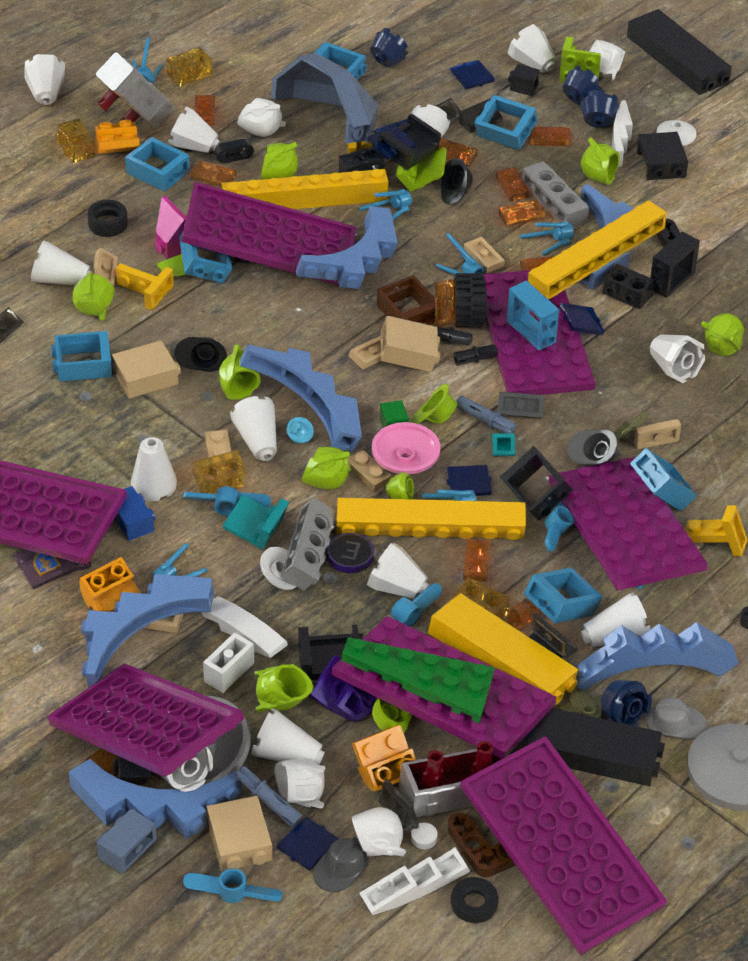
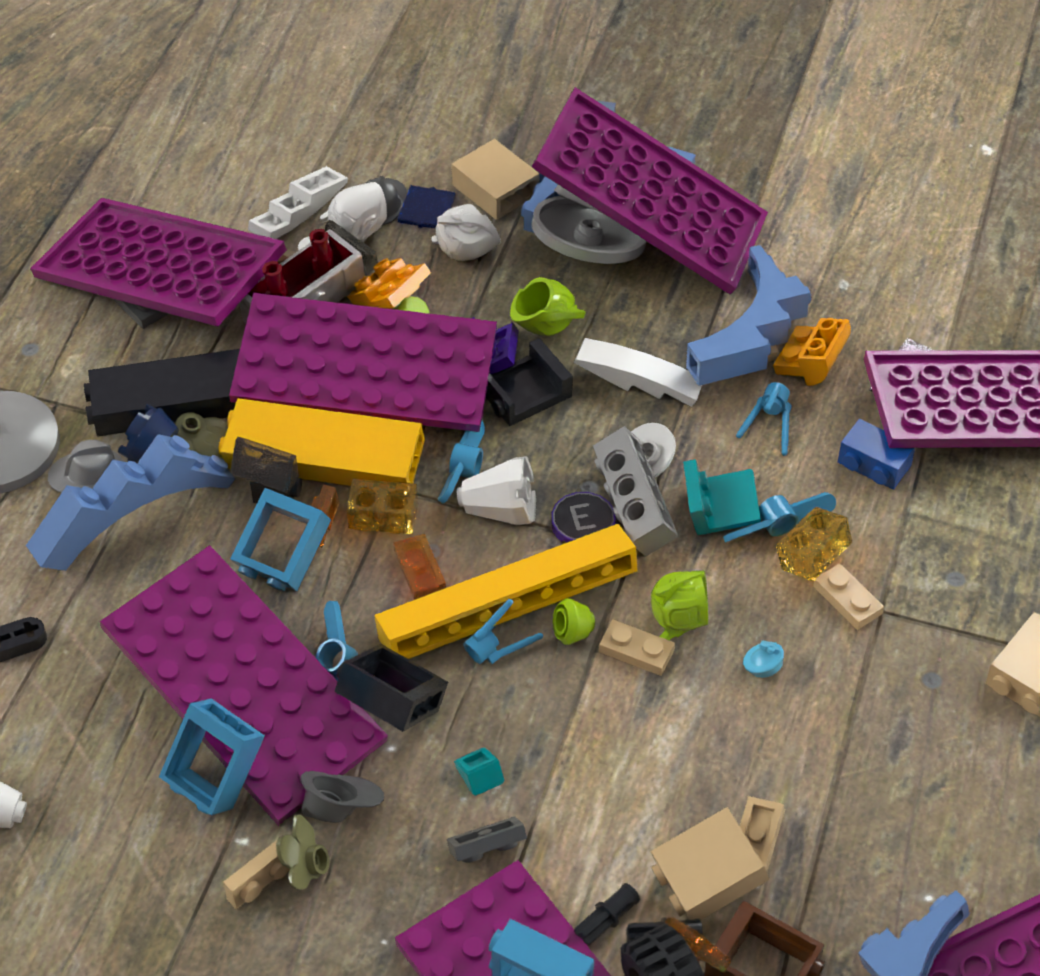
camera: 155 degrees right, 5 degrees up
(153, 471) = (892, 506): white cone -> none
(200, 353) = (987, 724): black piece -> none
(228, 662) = (623, 314): white brick -> none
(231, 895) = (469, 138): dark azure piece -> none
(237, 380) = (906, 702): lime helmet -> none
(257, 426) = (818, 626): white cone -> none
(268, 796) = (499, 205): sand blue axle -> none
(283, 740) = (503, 263): white cone -> none
(316, 388) = (784, 710): medium blue arch -> none
(392, 413) = (651, 732): green brick -> none
(406, 448) = (604, 659): bright pink dish -> none
(430, 676) = (368, 341): green wing -> none
(437, 408) = (606, 770): lime piece -> none
(470, 478) = (495, 693): clear blue piece -> none
(479, 886) = (230, 199): black tyre -> none
(492, 418) = (529, 802): sand blue axle -> none
(624, 612) = (189, 532): white cone -> none
(726, 530) = (112, 728): yellow bracket -> none

